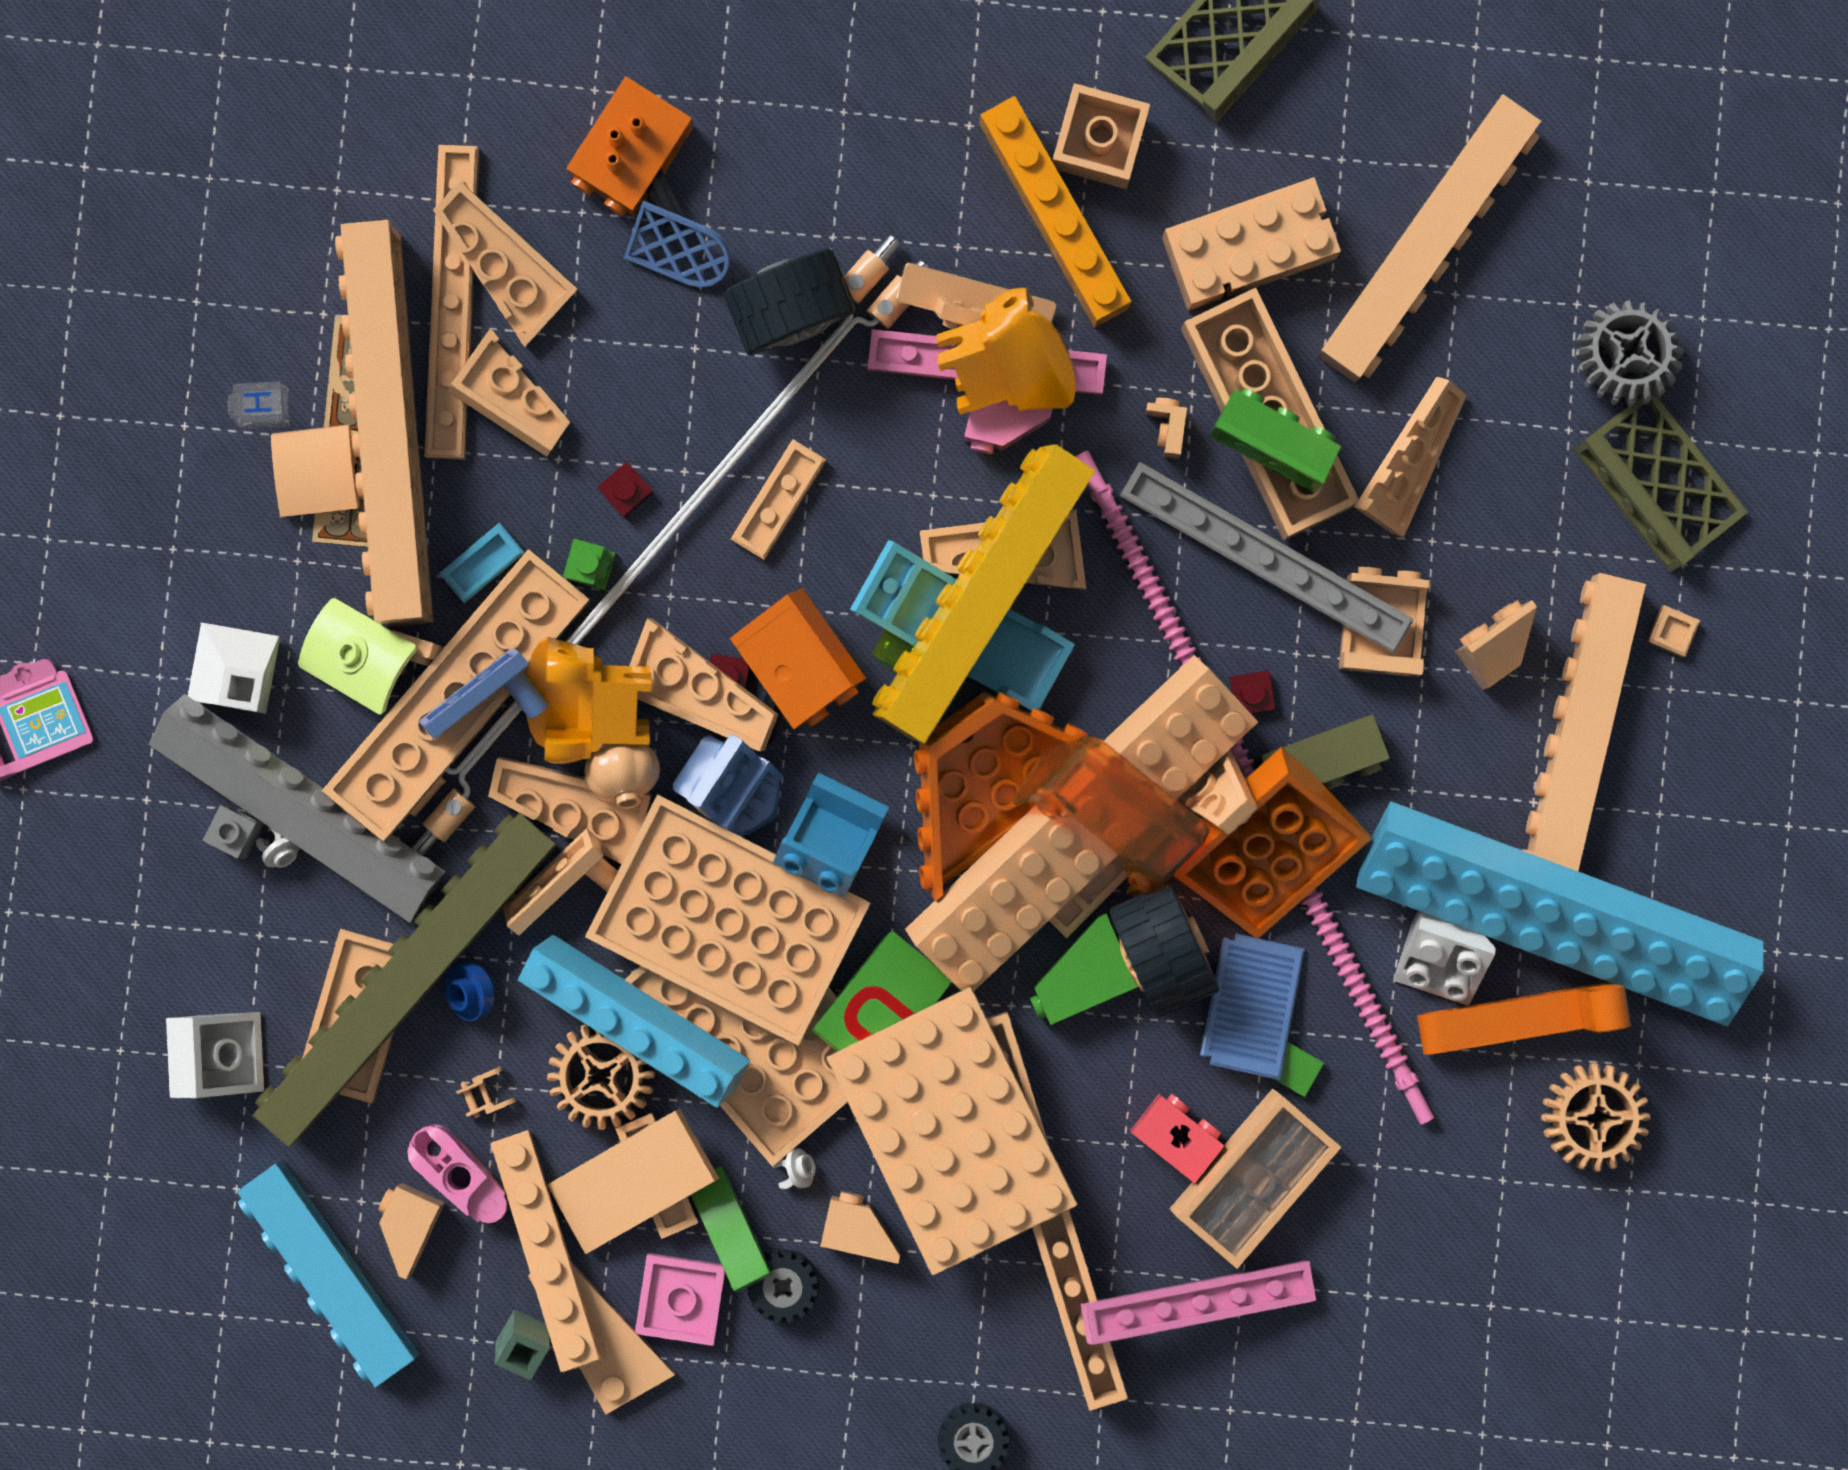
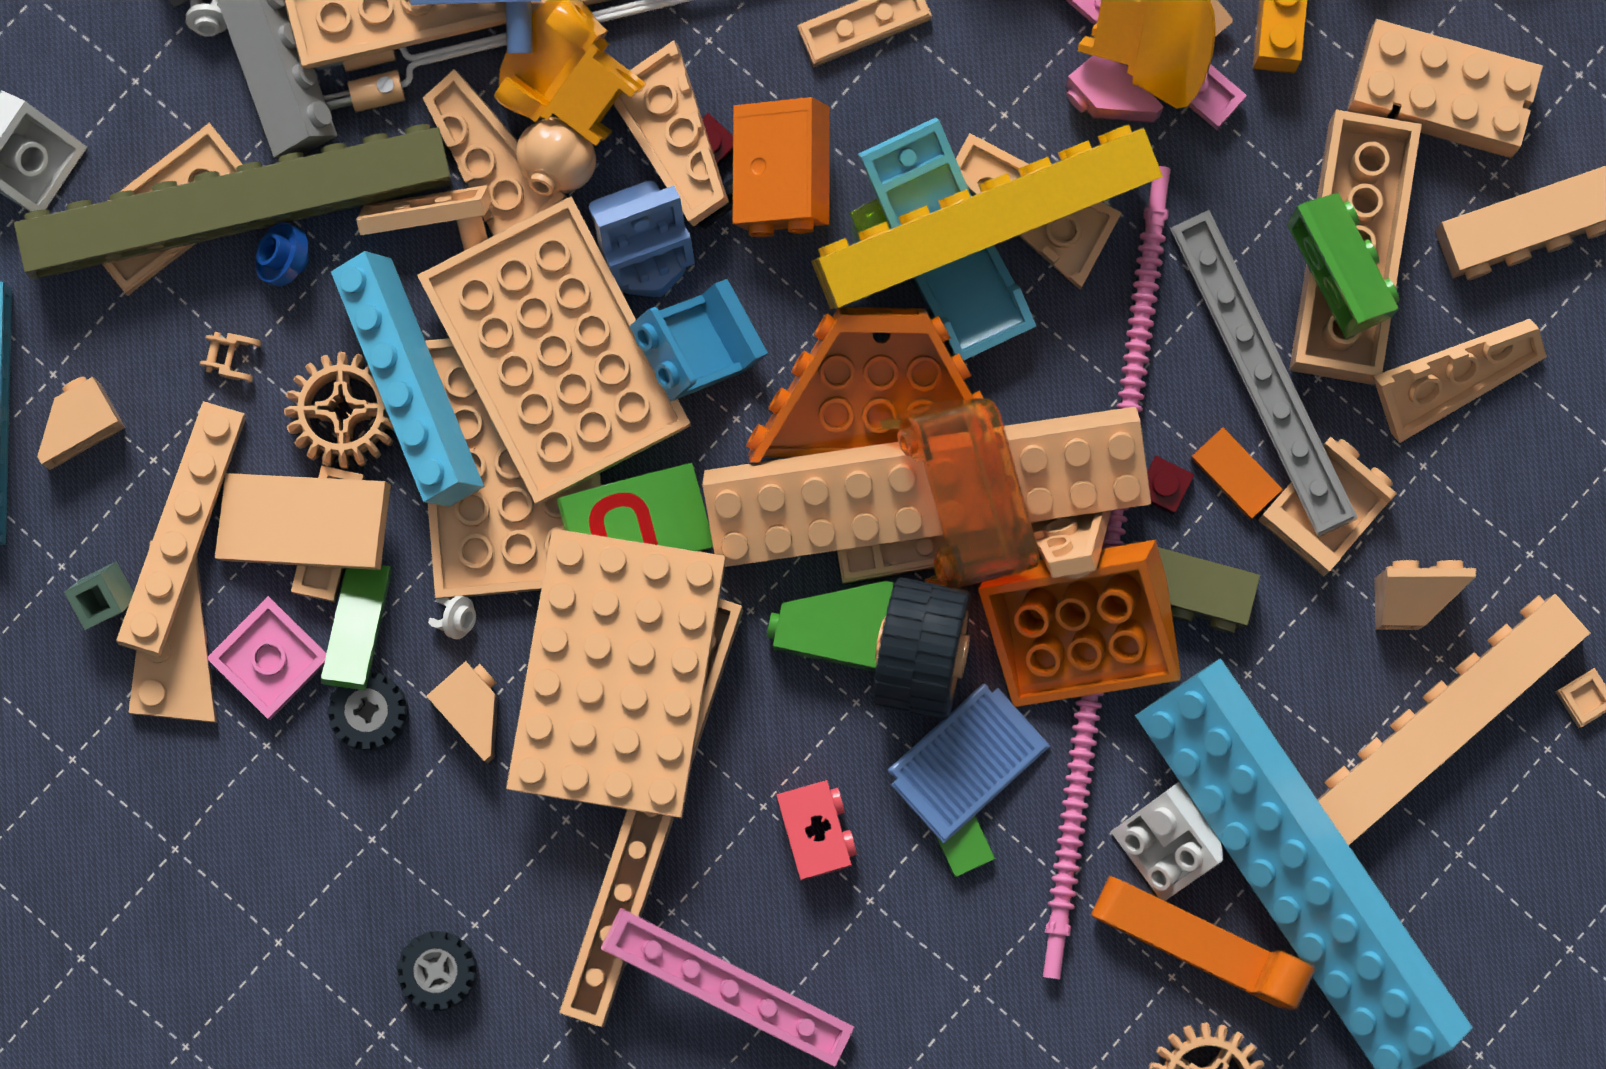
camera: 35 degrees right, 5 degrees down
(482, 1199) = (158, 442): bright pink piece -> none
(1170, 433) = (1256, 205): light nougat bracket -> none
(1255, 1178) = (858, 915): clear brick -> none
(1299, 646) = (1236, 473): none -> orange tile

